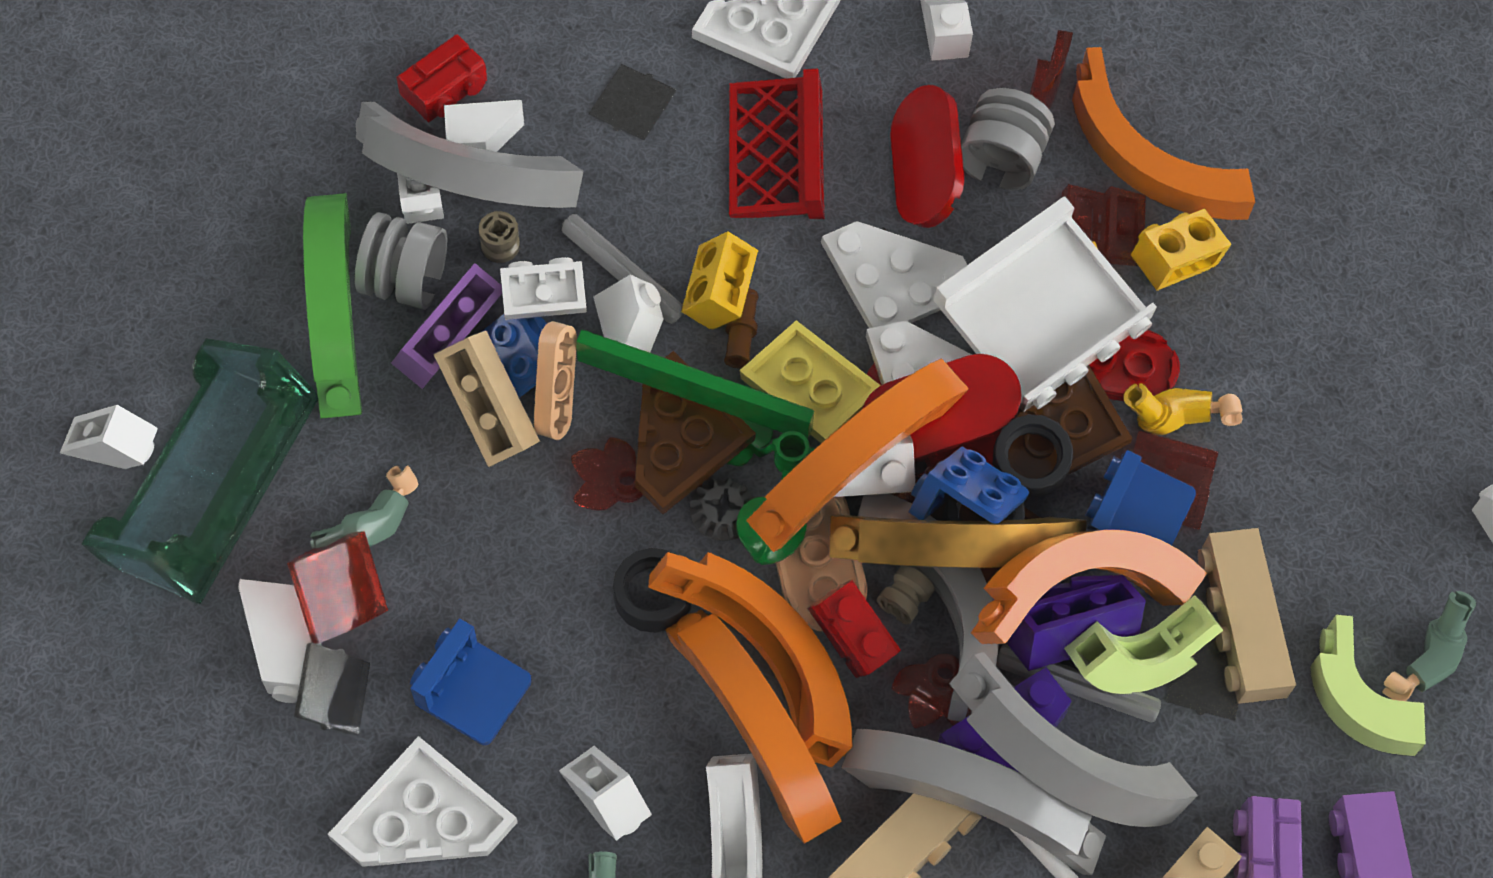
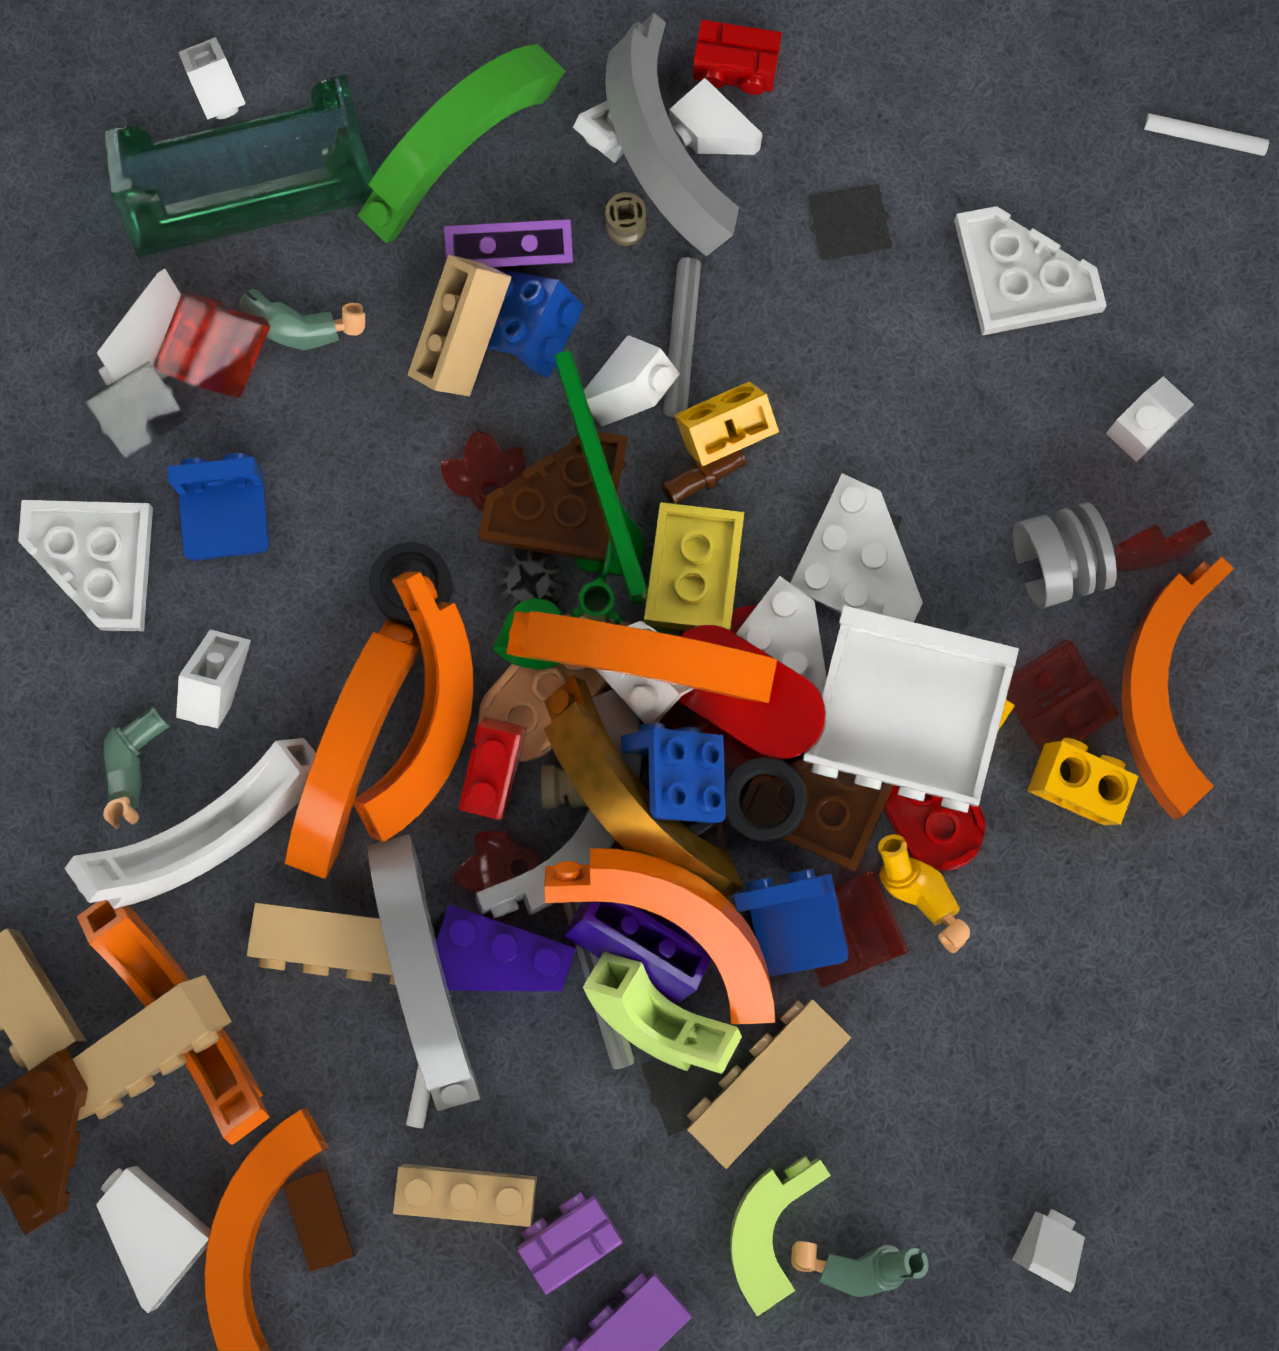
camera: 55 degrees right, 15 degrees up
(399, 260) = (529, 155): light grey wheel -> none
(543, 289) = (588, 293): white bracket -> none
(552, 397) = (536, 345): light nougat beam -> none
(809, 152) = (927, 397): red fence -> none
(927, 156) = (992, 501): red tile -> none
(1059, 764) = (480, 1028): light grey arch -> none

